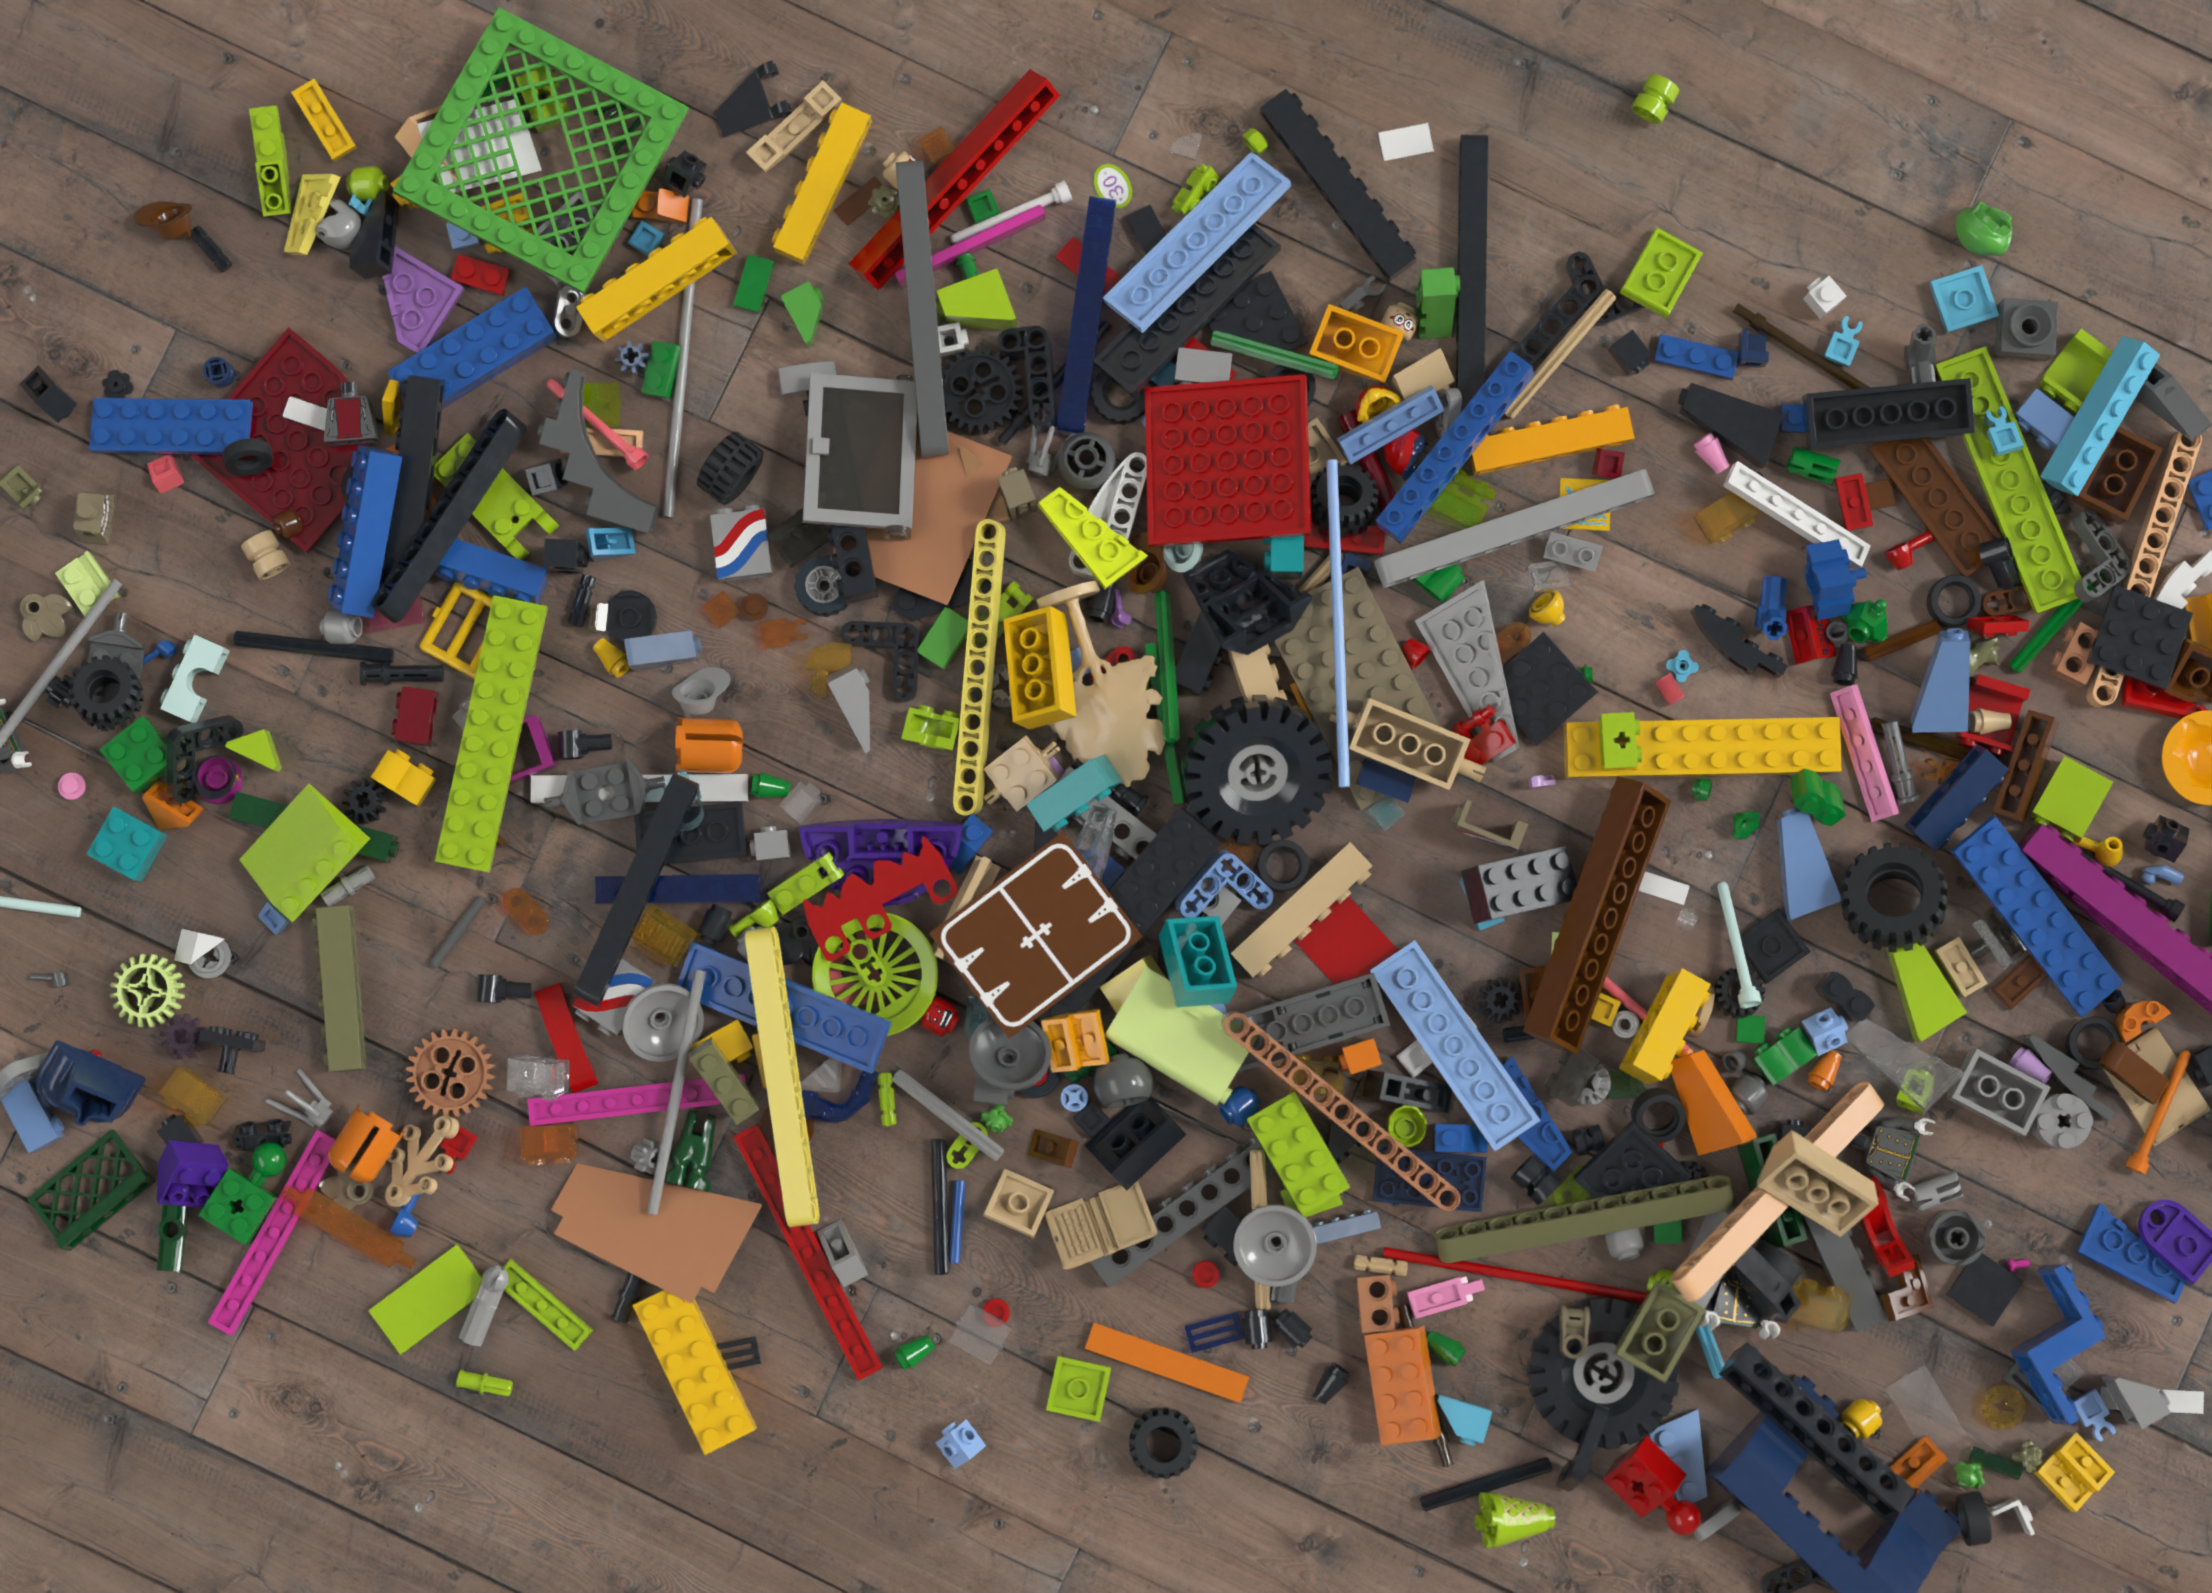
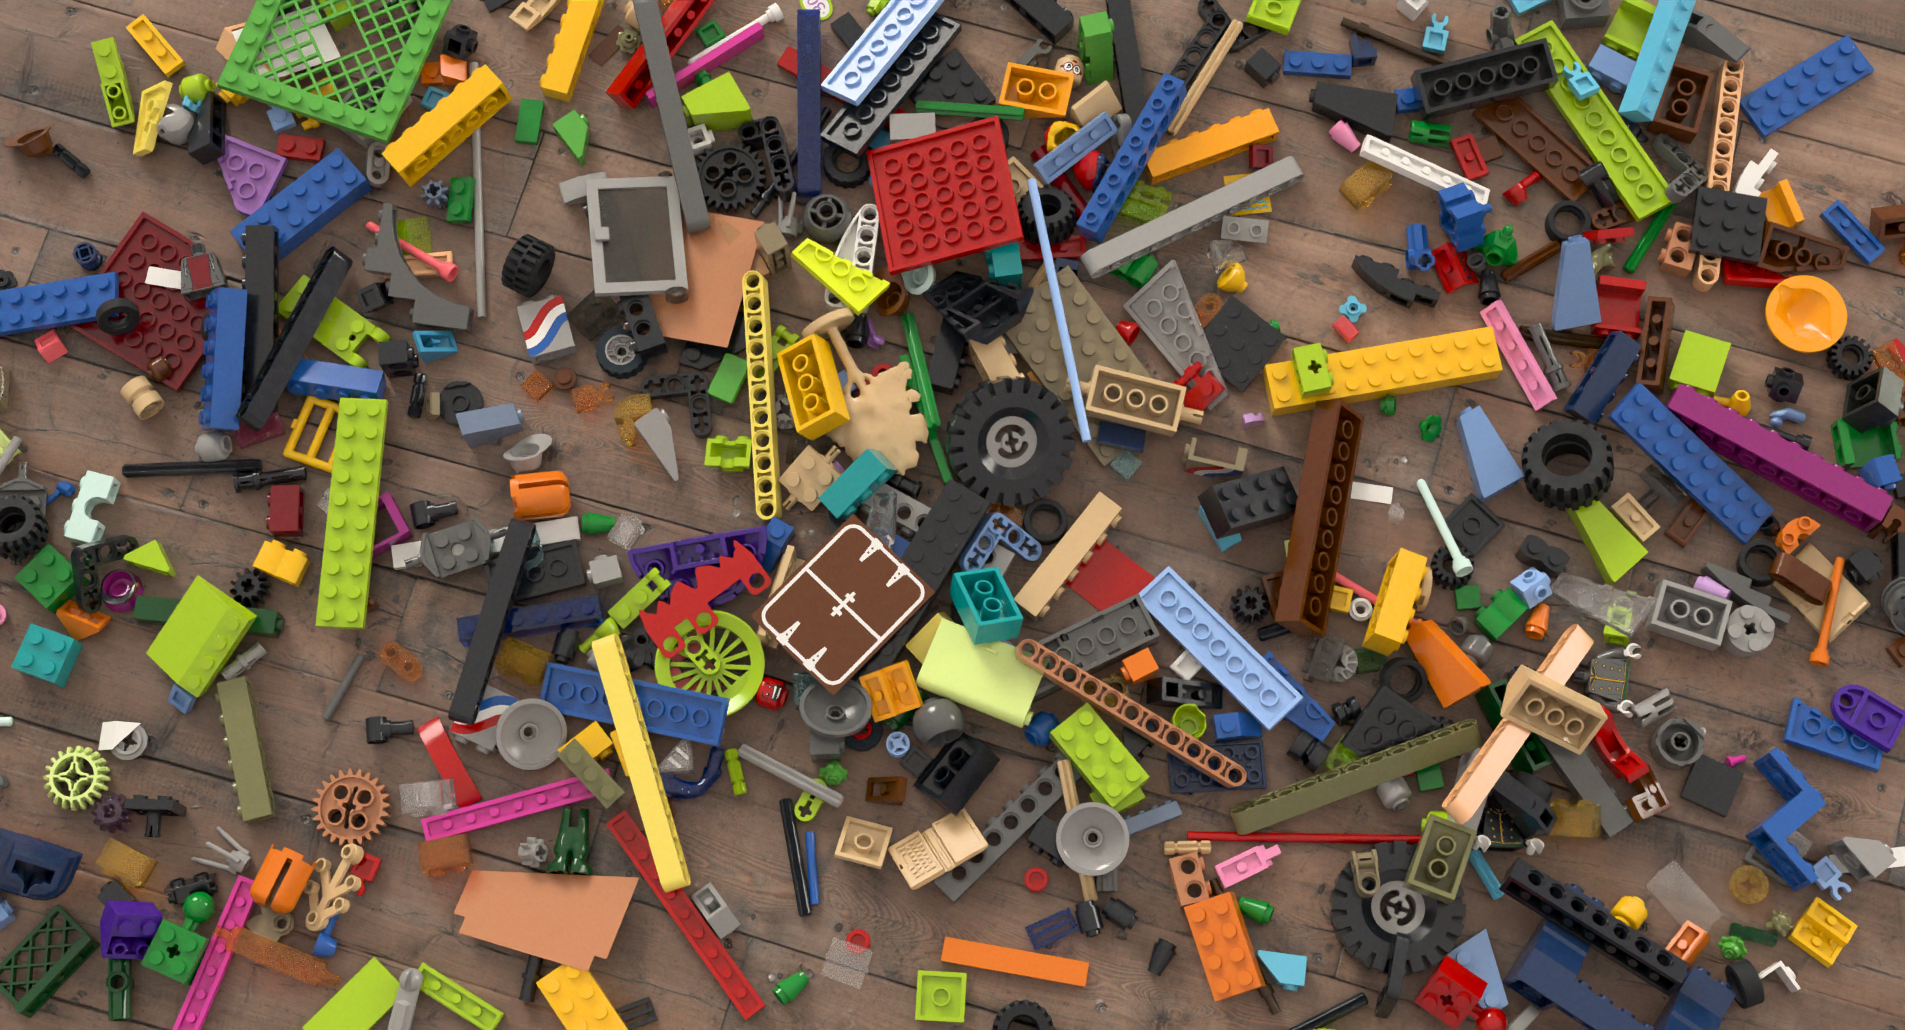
camera: 10 degrees left, 10 degrees down
(391, 407) = (234, 255): yellow tile -> none
(612, 658) = (449, 438): yellow cone -> none
(676, 1092) = (550, 792): light grey piece -> none
(1817, 797) = (1486, 394): green brick -> none
(1988, 721) = (1616, 313): tan cone -> none

